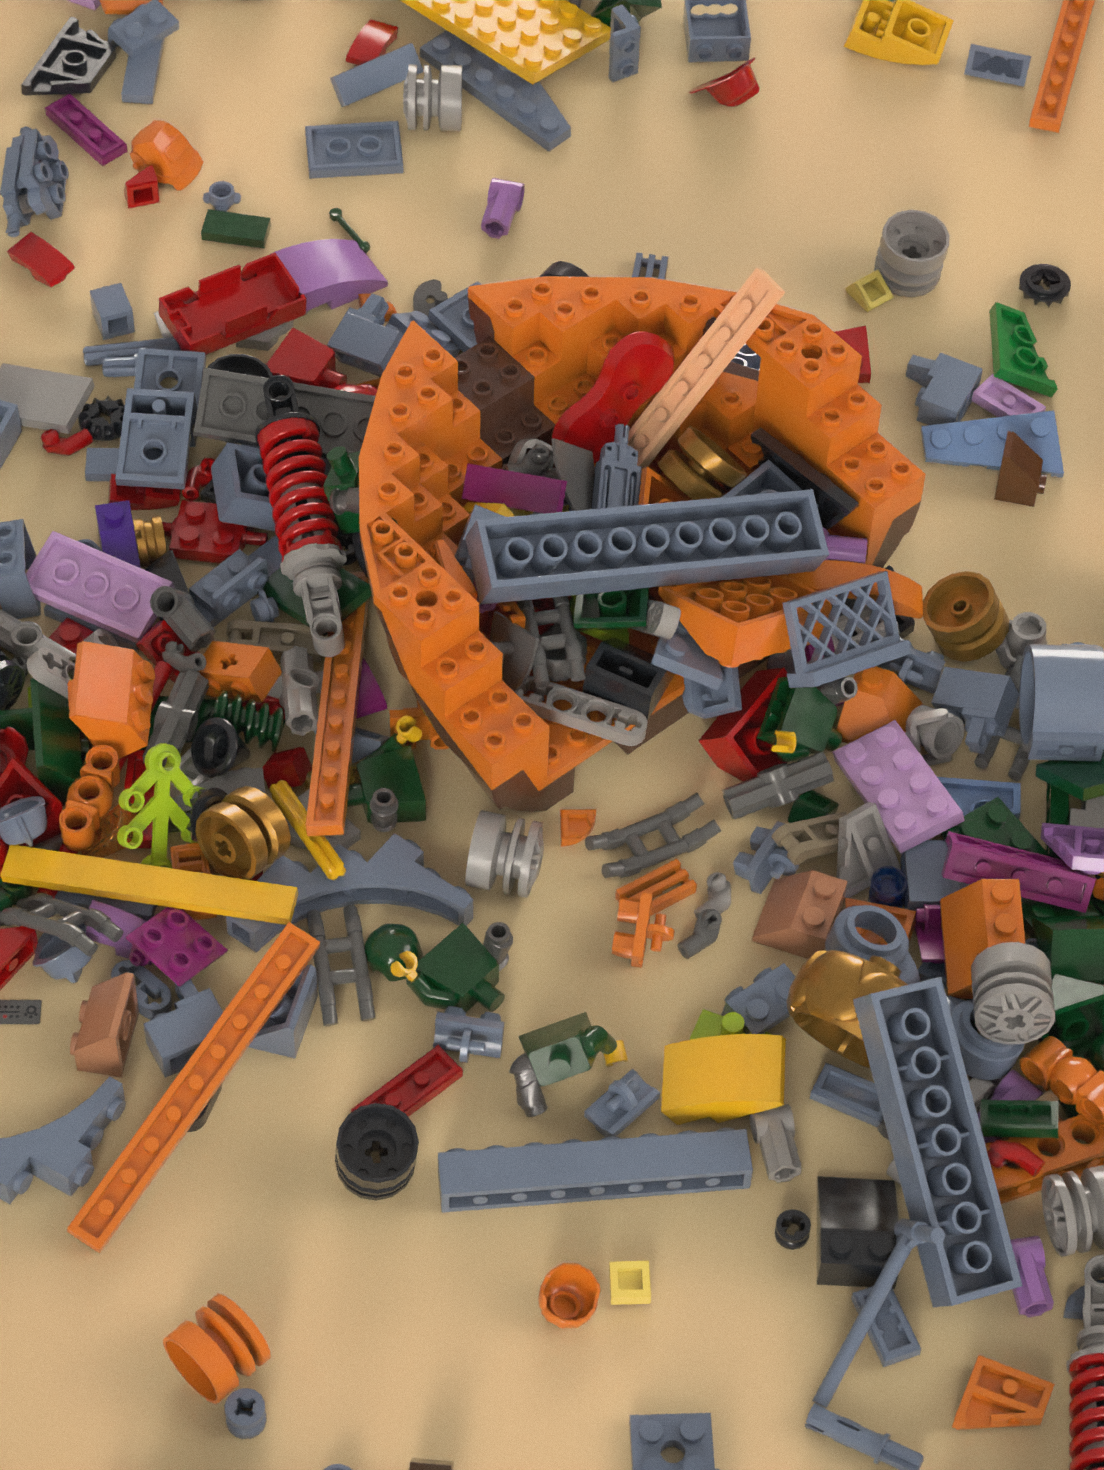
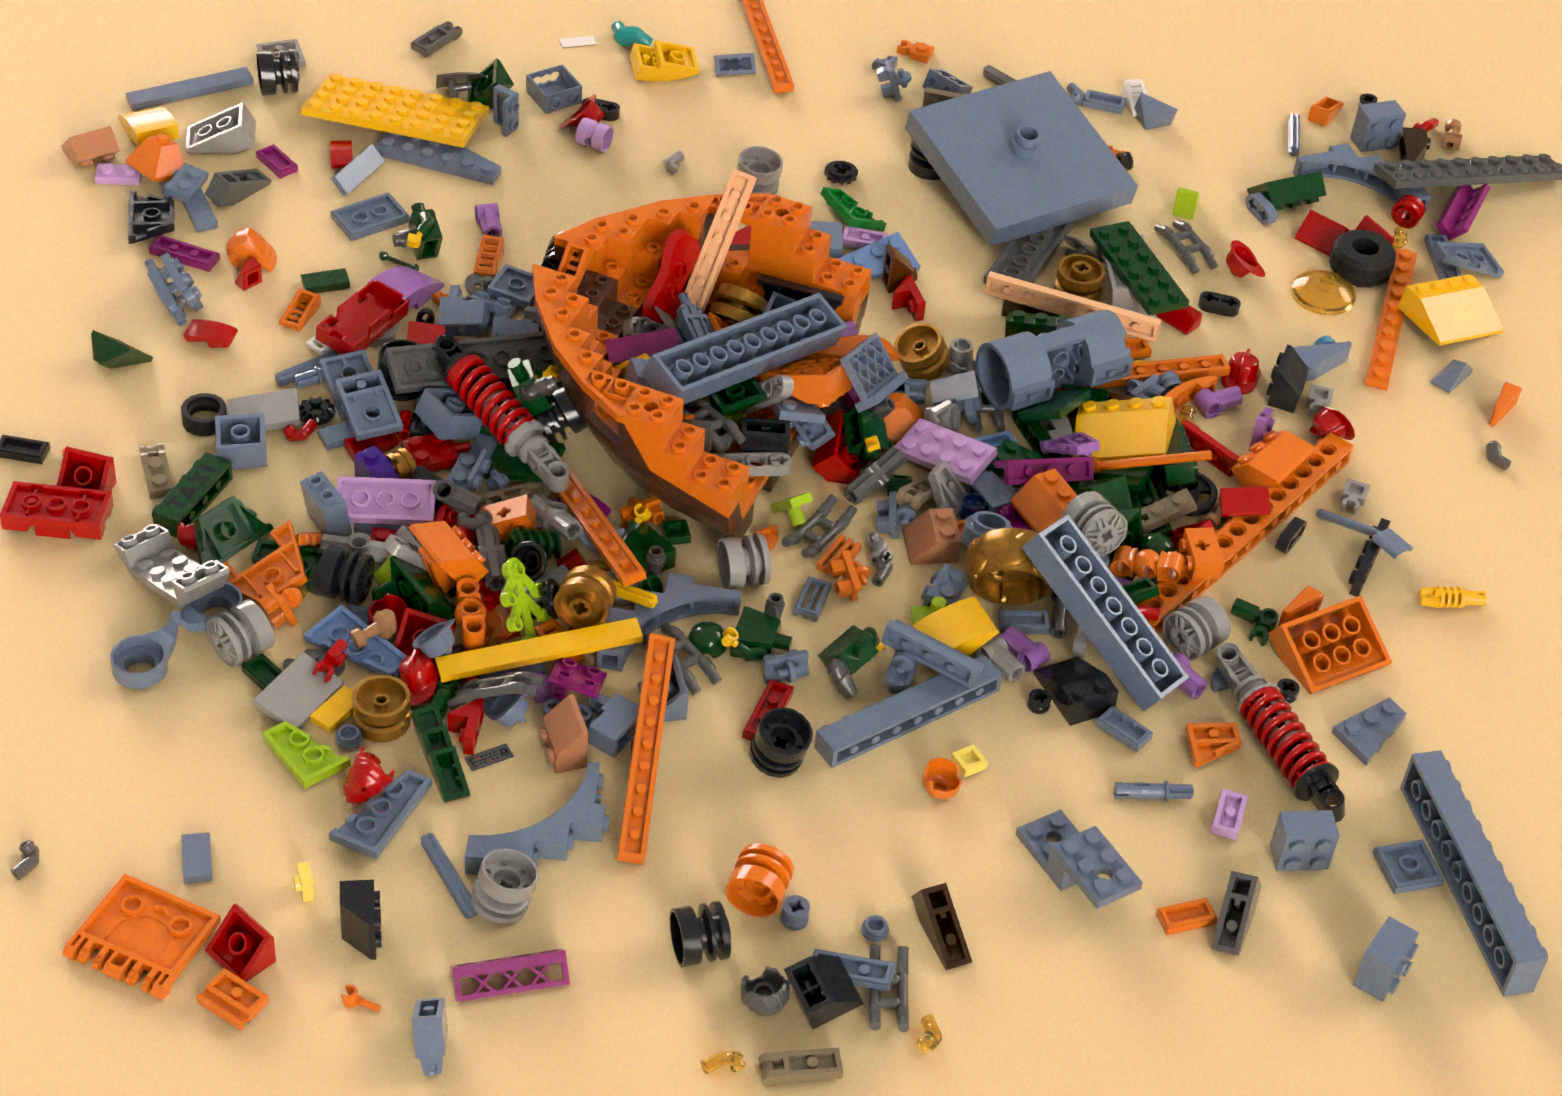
camera: 30 degrees left, 10 degrees down
(96, 1395) = (696, 934): none -> black wheel
(112, 311) = (279, 348): sand blue brick -> none
(178, 249) = (302, 296): none -> orange slope
(203, 51) = (234, 186): none -> dark grey slope
(221, 196) = (303, 264): sand blue plate -> none
(285, 28) = (276, 161): none -> magenta tile
(322, 330) = (430, 318): none -> black hinge
(368, 832) = (652, 583): none -> dark green plate
(387, 200) = (422, 234): none -> dark green torso
(434, 97) = (409, 169): light grey wheel -> none
(450, 773) = (676, 532): none -> dark green plate
(478, 244) = (489, 254): none -> orange slope
(486, 336) = (584, 261): none -> orange slope
(557, 961) = (798, 609): none -> sand blue tile
(631, 791) = (793, 507): none -> lime tile
(663, 1106) = (932, 653): none -> sand blue fence
(725, 119) = (594, 134): none -> lavender wheel
(772, 82) = (610, 109): none -> black beam
(811, 192) = (671, 162): none -> light grey arm
(822, 1148) = (1028, 652): none -> medium lavender piece
(908, 1235) = (1115, 671): sand blue bar -> none
(1009, 516) = (909, 297): none -> red slope

